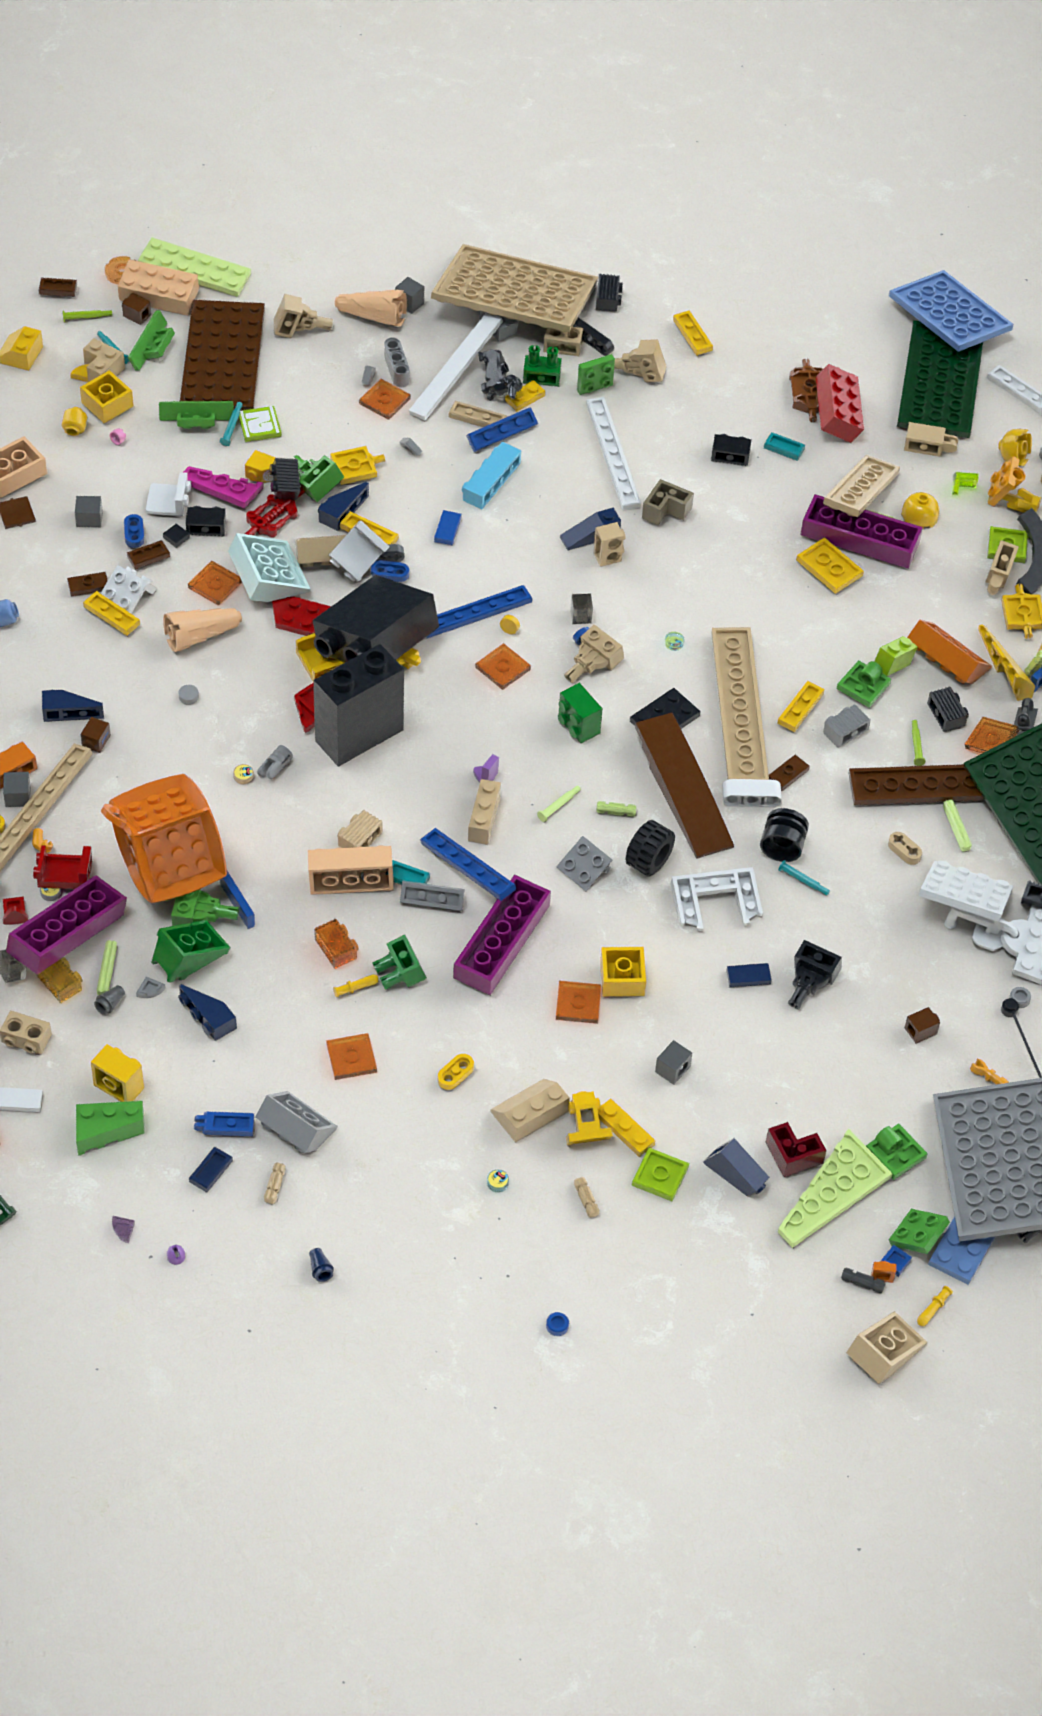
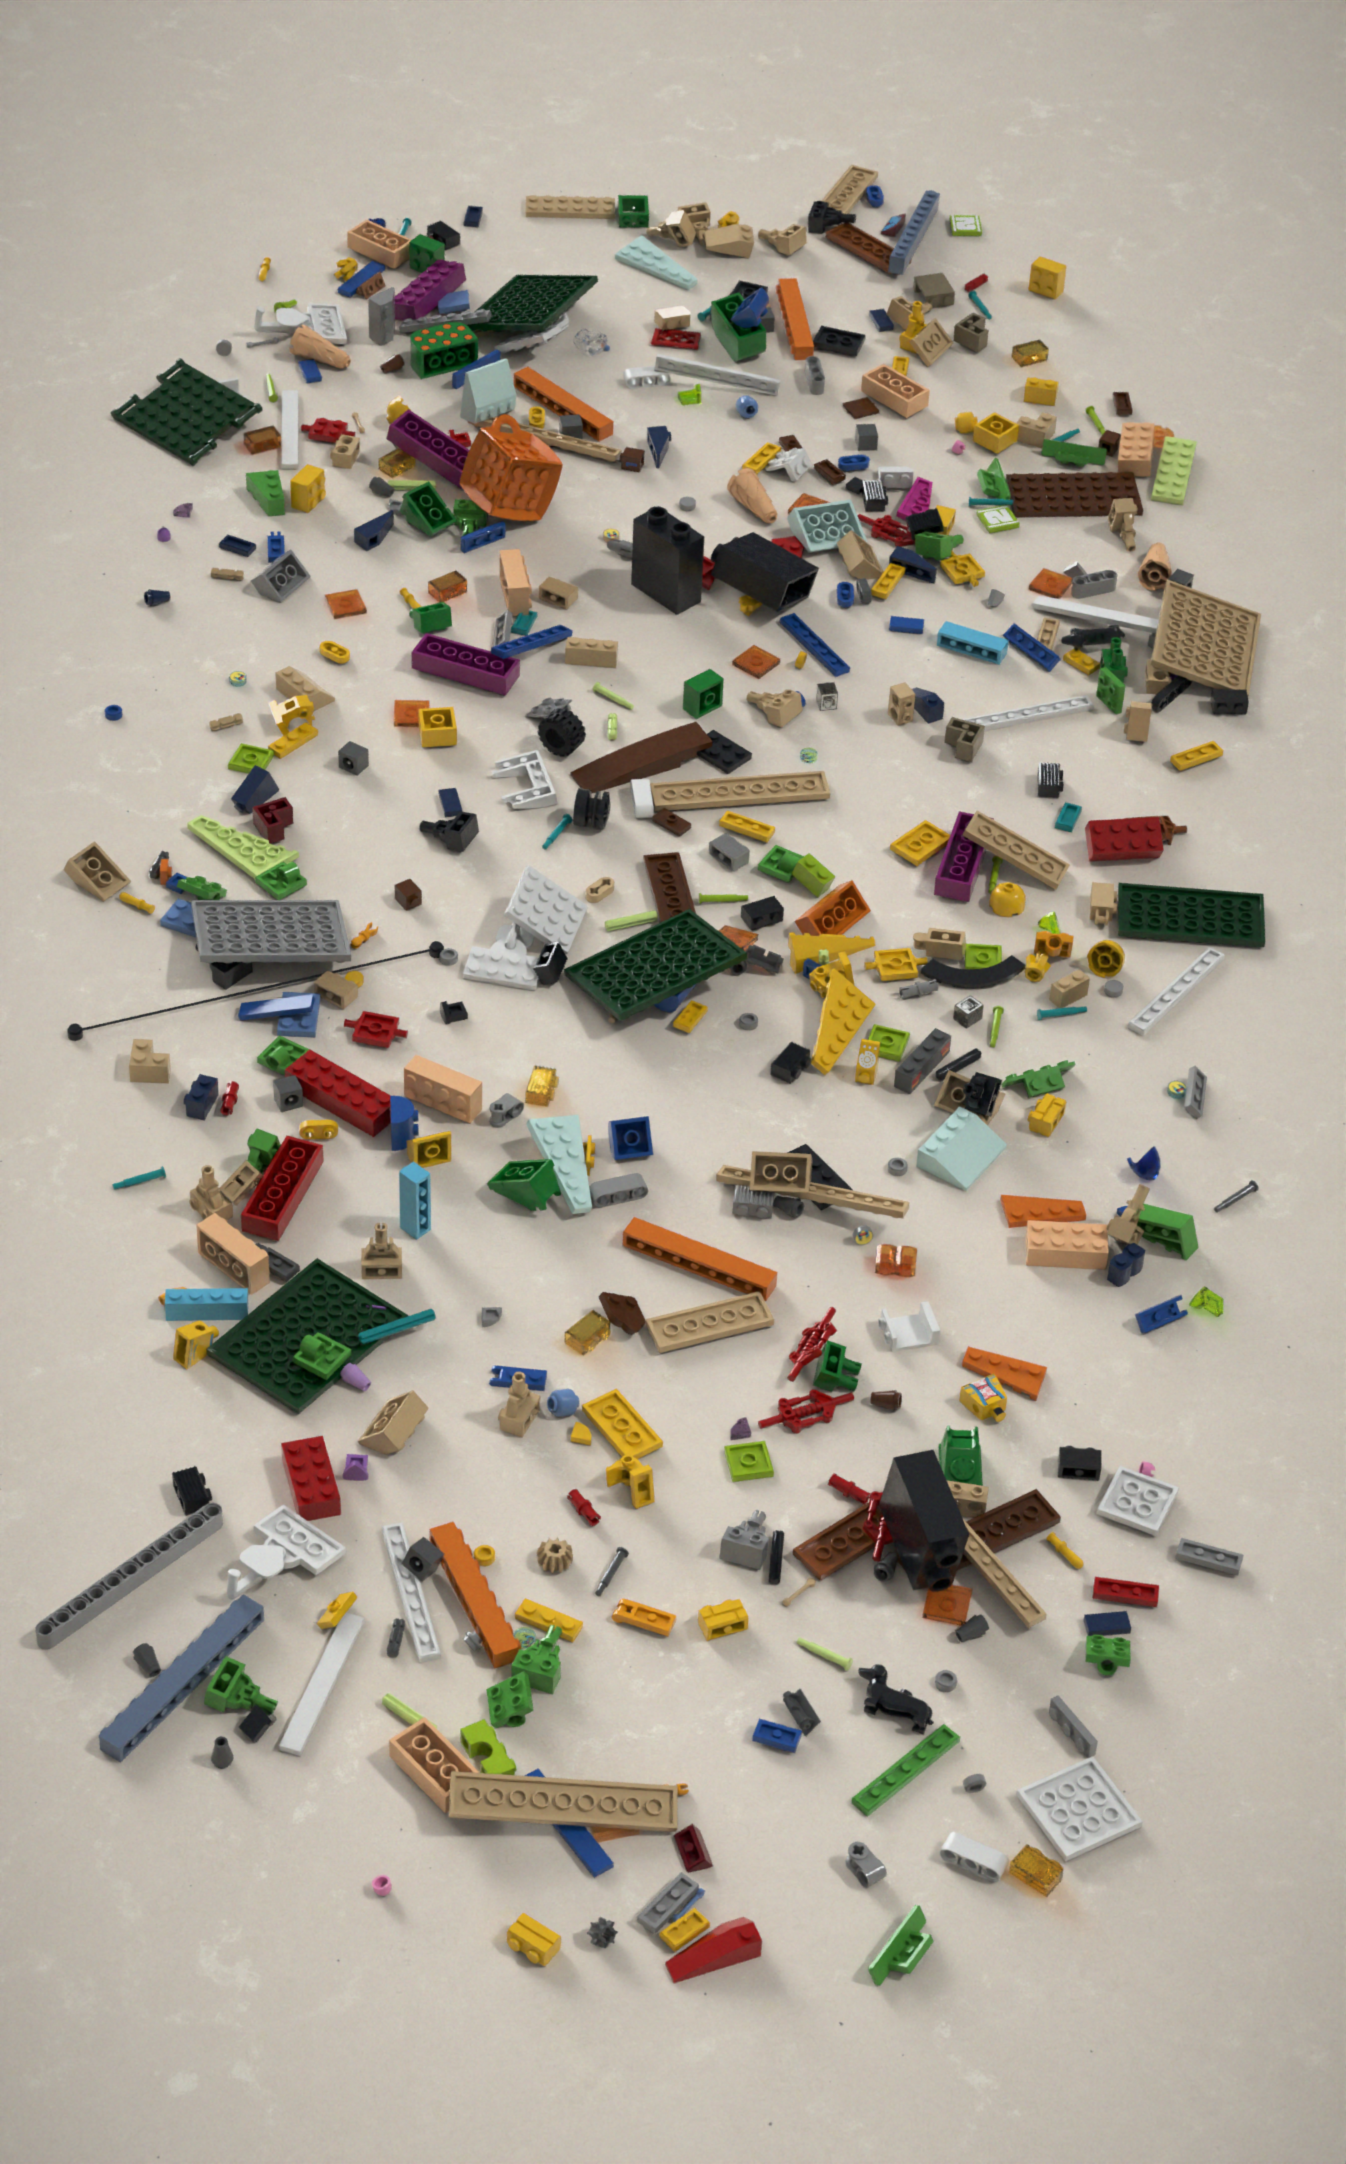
camera: 85 degrees right, 10 degrees down
(358, 551) = (850, 566): white panel -> none
(488, 770) = (635, 653): medium lavender tile -> none
(951, 310) = (1282, 915): medium blue plate -> none

